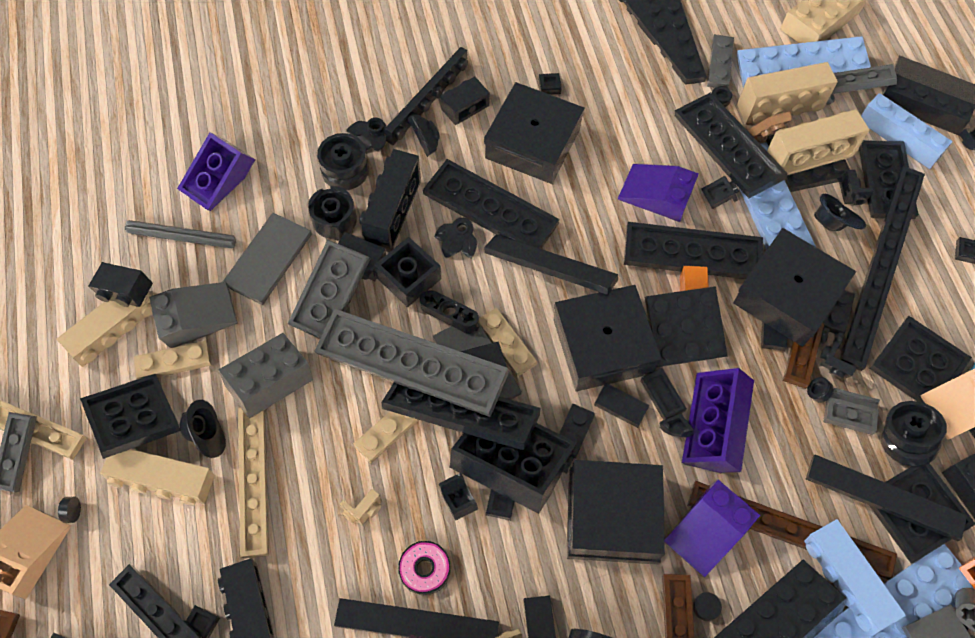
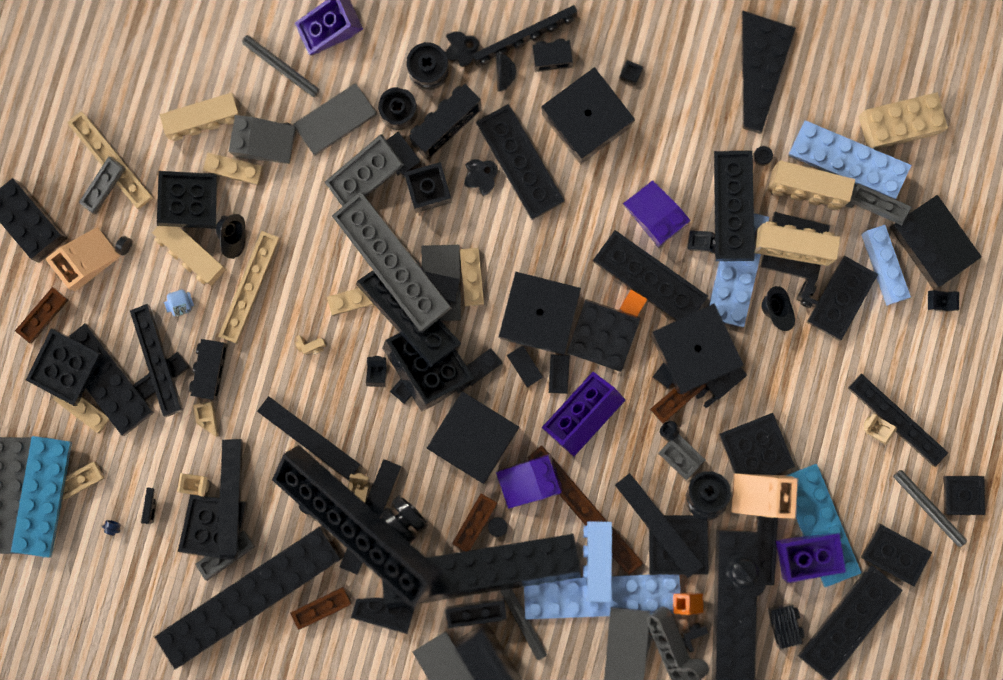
camera: 35 degrees right, 20 degrees up
(120, 285) = (218, 97): black brick -> none
(171, 542) = (179, 302): none -> light blue head
(266, 375) = (289, 217): dark grey brick -> none
(418, 553) = (320, 405): tile -> none
(454, 320) = (434, 229): black beam -> none
(552, 264) = (533, 236): black tile -> none
(677, 426) = (552, 402): black tile -> none
(720, 61) = (785, 122): dark grey plate -> none
(770, 126) = (769, 210): medium nougat plate -> none
(836, 366) = (692, 421): black bracket -> none
(882, 268) = (782, 365): black plate -> none

